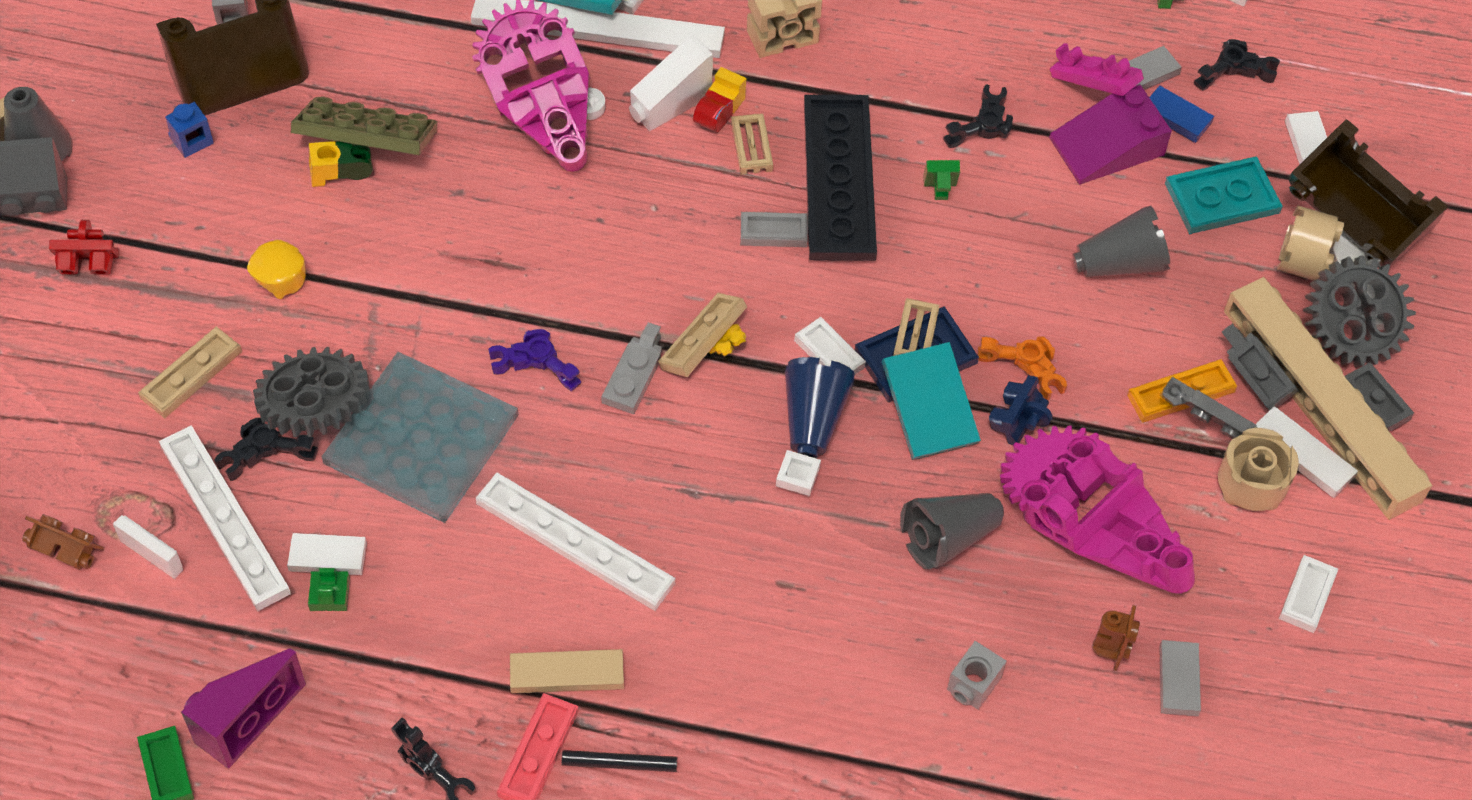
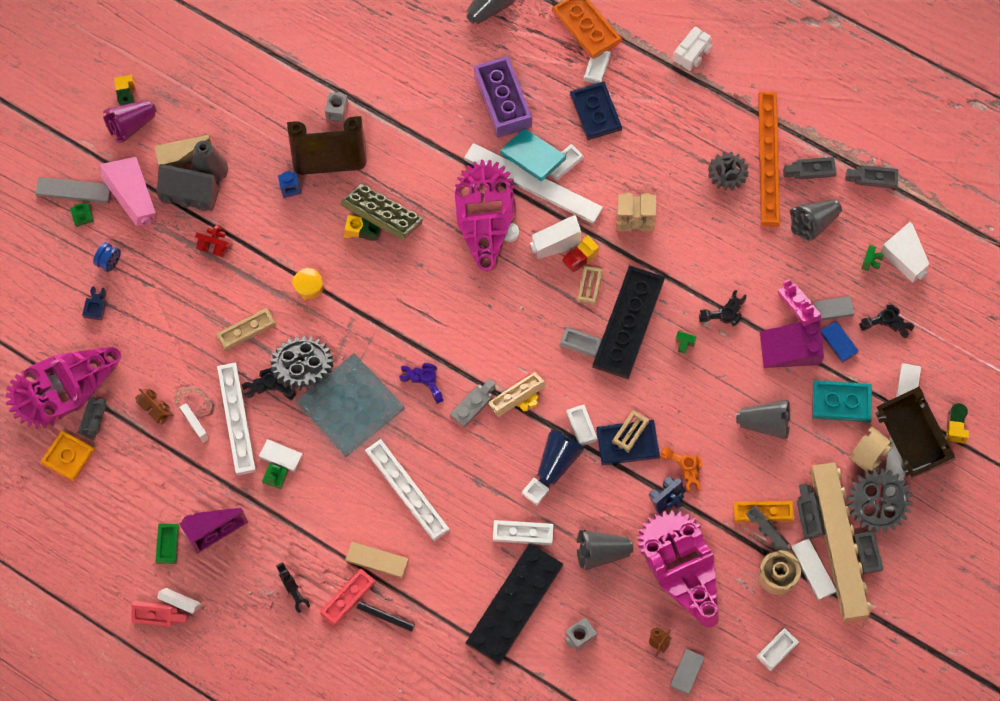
camera: 25 degrees right, 10 degrees up
(805, 544) = (523, 532): none -> white plate
(838, 668) = (514, 604): none -> black plate
(931, 401) = (621, 474): teal tile -> none
(1411, 170) = (955, 424): none -> leg

